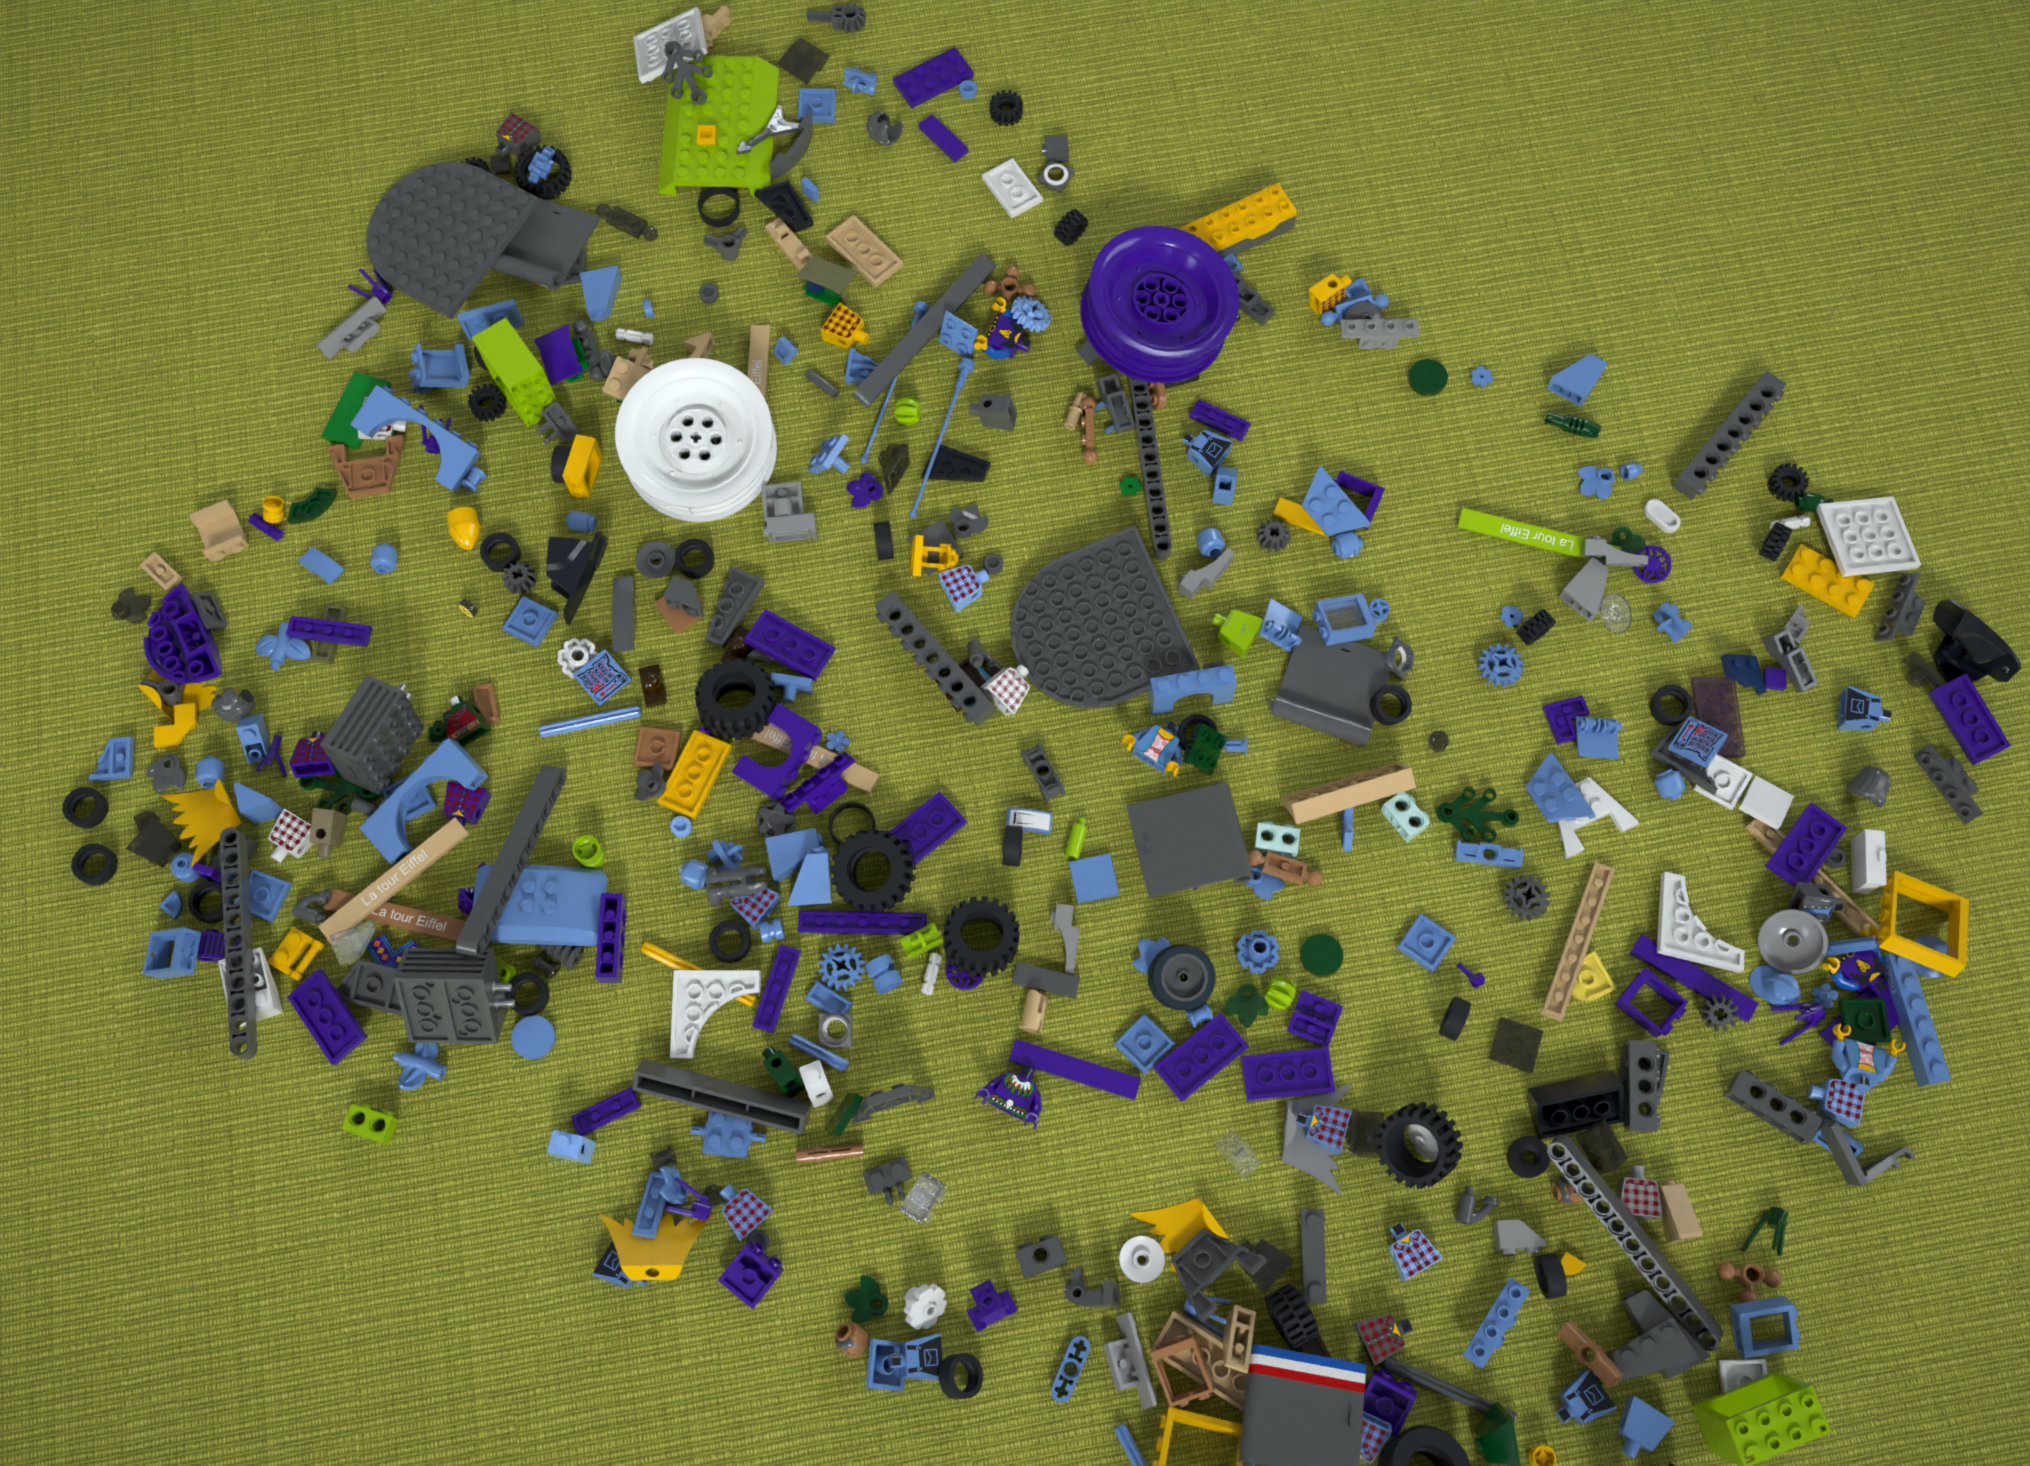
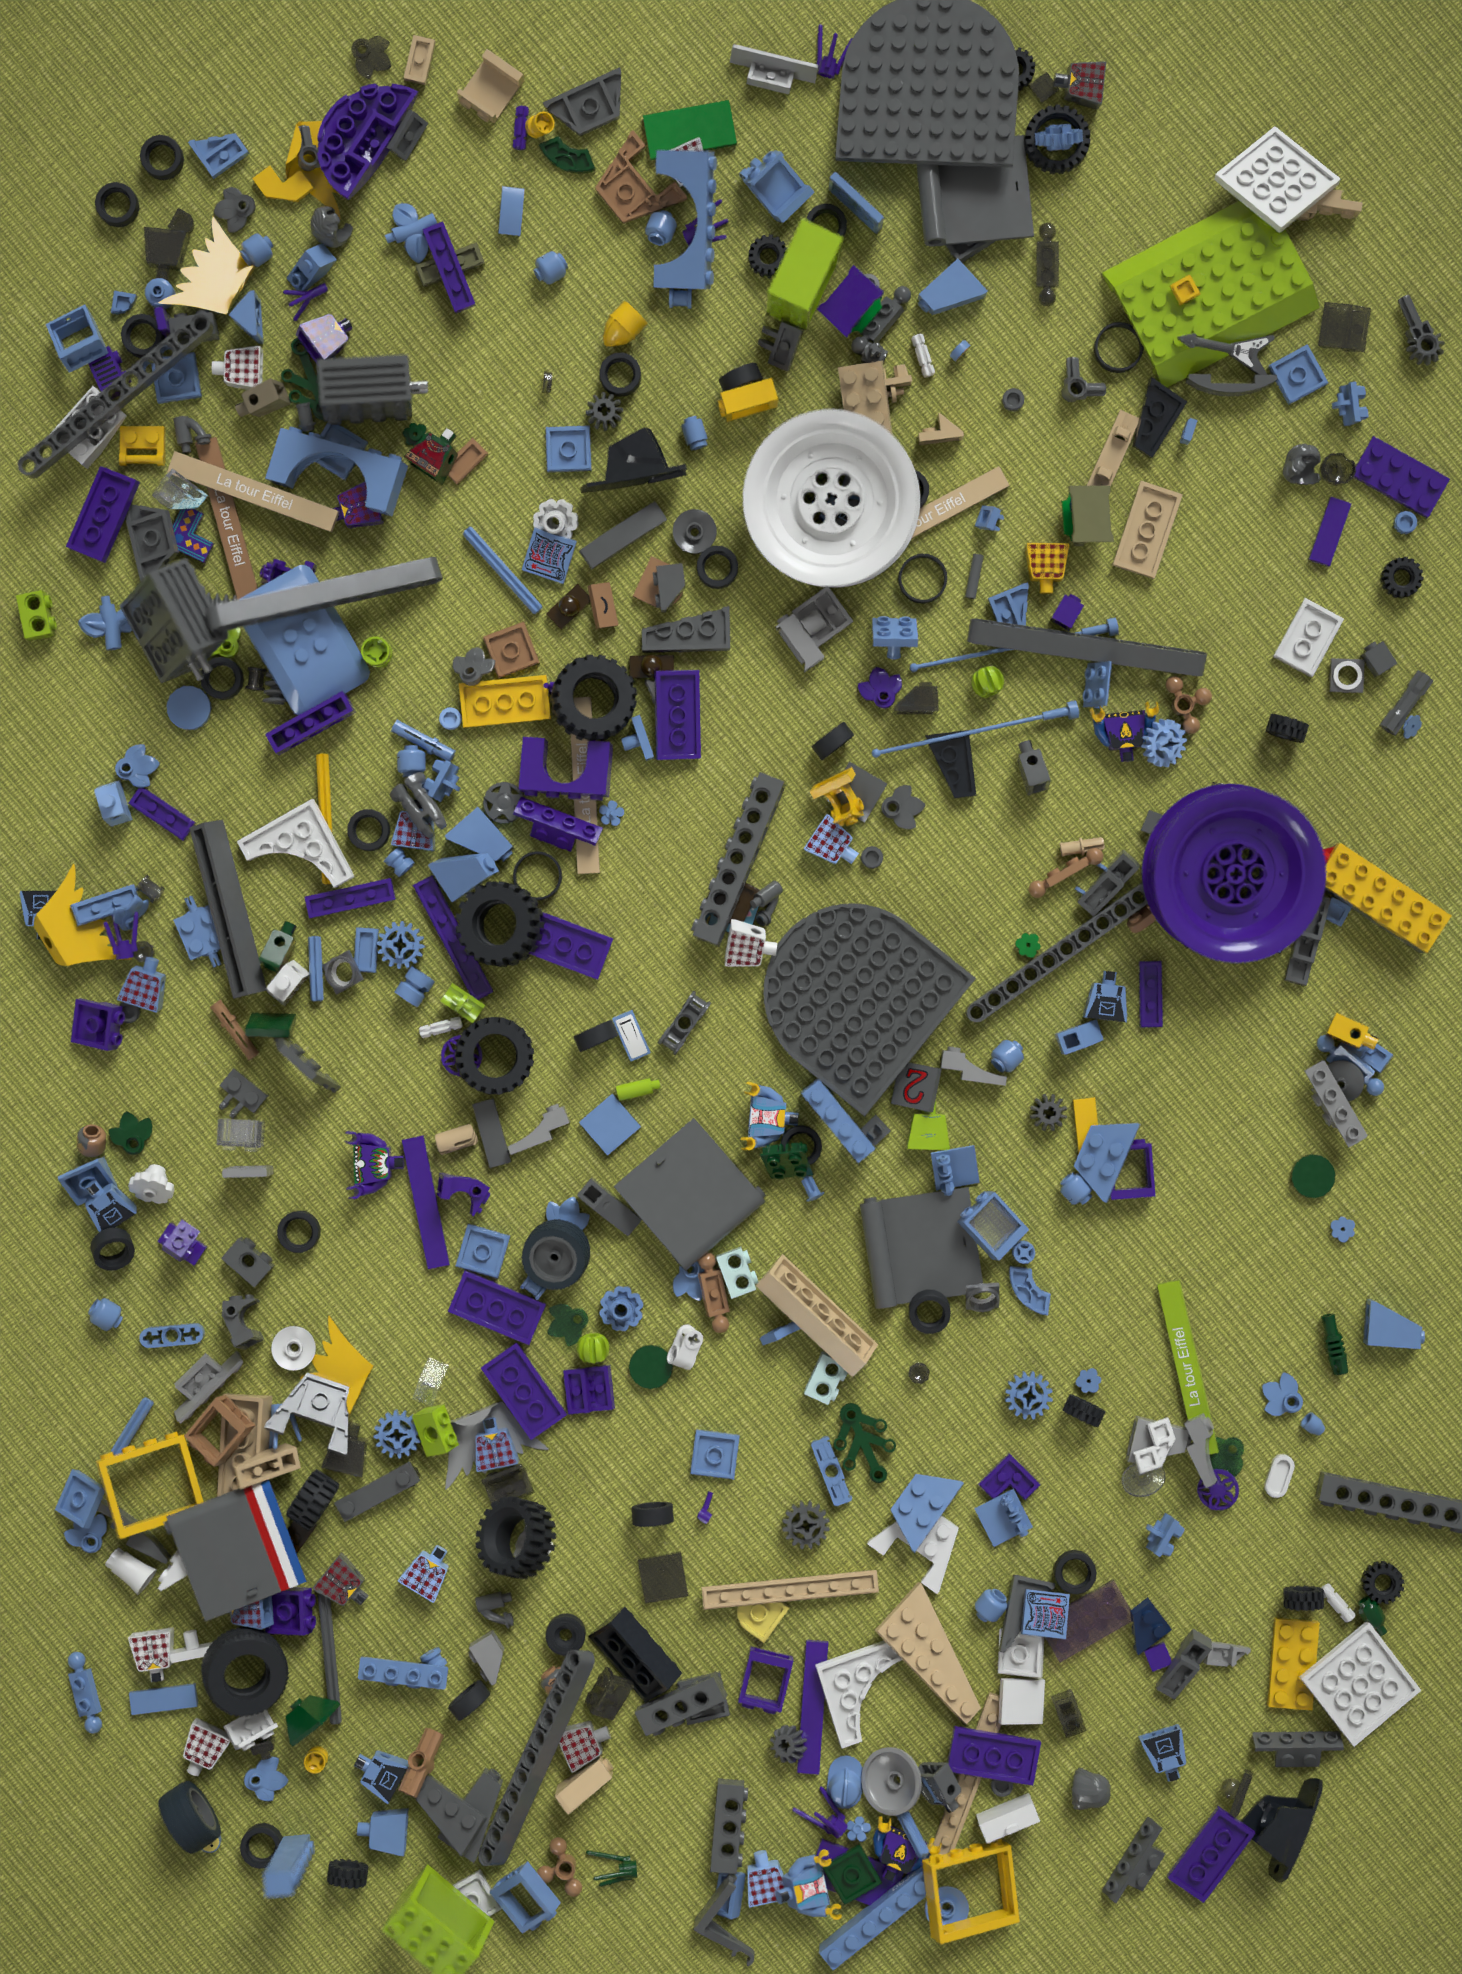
camera: 60 degrees right, 20 degrees up
(285, 468) = (589, 104): none -> dark grey wing
(411, 465) = (661, 227): none -> medium blue head
(553, 1107) = (140, 765): none -> medium blue plate
(668, 658) = (602, 605): none -> medium nougat tile
(684, 71) = (1244, 222): dark grey plant -> none
(692, 852) = (401, 729): none -> medium blue pin
(801, 436) = (922, 556): none -> black tyre
(889, 332) = (1067, 611): none -> dark purple brick
(902, 110) = (1337, 469): none -> clear smoke hair
(960, 1207) = (247, 1171): none -> light grey tile
(1017, 1420) = (105, 1314): none -> medium blue head
(1039, 1213) = (295, 1248): none -> black tyre
(1070, 1035) = (450, 1184): none -> dark purple tile
(1106, 158) = (1397, 716): none -> dark grey axle
(1119, 152) = (1411, 726): none -> medium blue plant
(1162, 914) = (609, 1206): none -> dark grey slope
(1199, 620) = (917, 1087): none -> dark grey tile
(1279, 1211) = (388, 1434): none -> medium blue gear
(1292, 1177) = (435, 1430): none -> lime brick
(1321, 916) = (685, 1348): none -> white piece
(1412, 625) = (1027, 1291): none -> medium blue tile
(1493, 1289) = (433, 1657): none -> medium blue wheel
(1571, 1264) = (491, 1711): yellow tile -> none
(1590, 578) = (1162, 1439): none -> white tile
(1680, 856) = (923, 1645): none -> tan wing
(1793, 768) = (1068, 1713): none -> clear smoke slope

